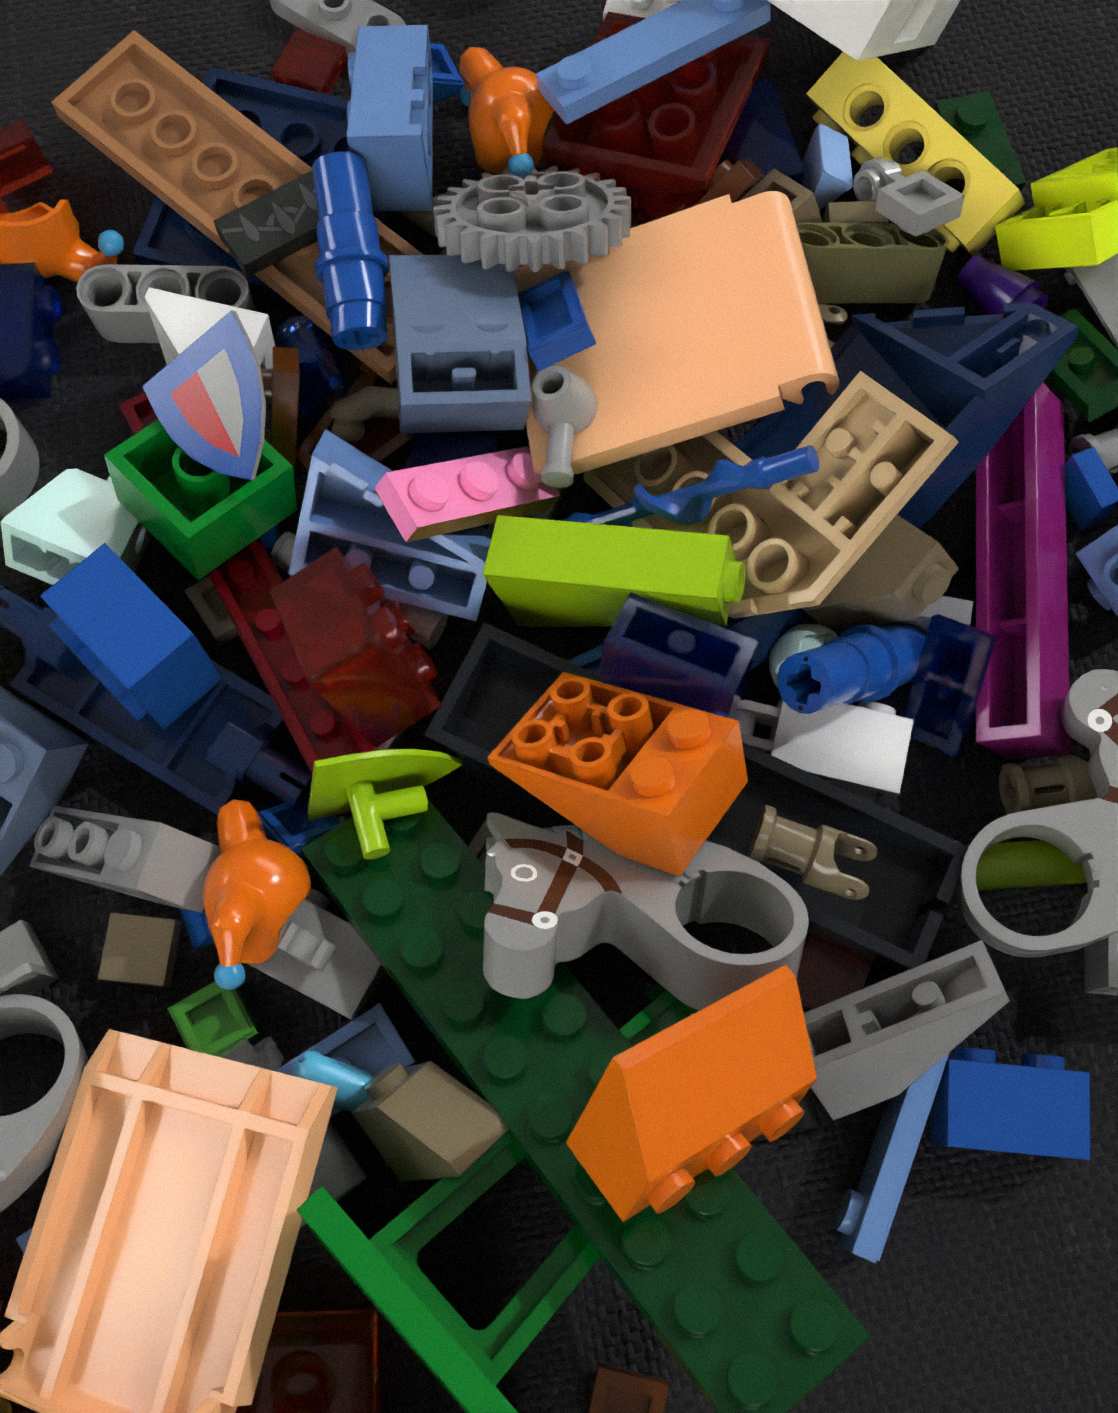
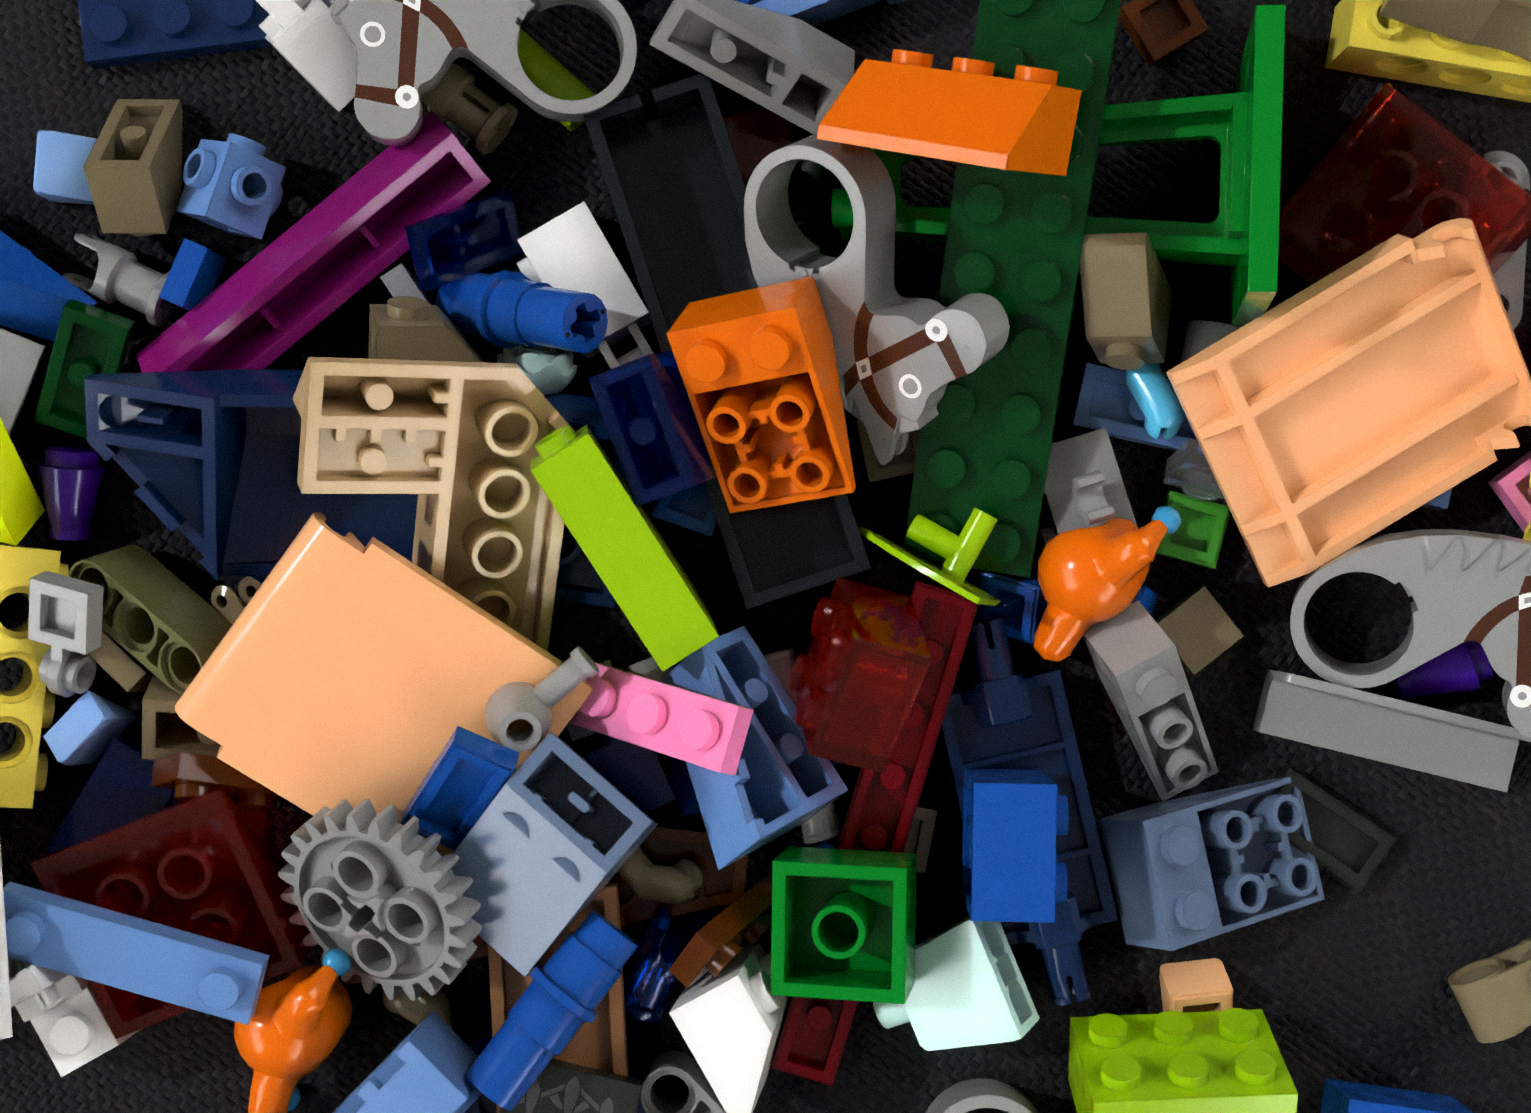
camera: 135 degrees left, 15 degrees up
(214, 400) = (788, 958): shield -> none
(694, 502) = (522, 551): blue piece -> none
(810, 852) = (702, 219): dark tan piece -> none

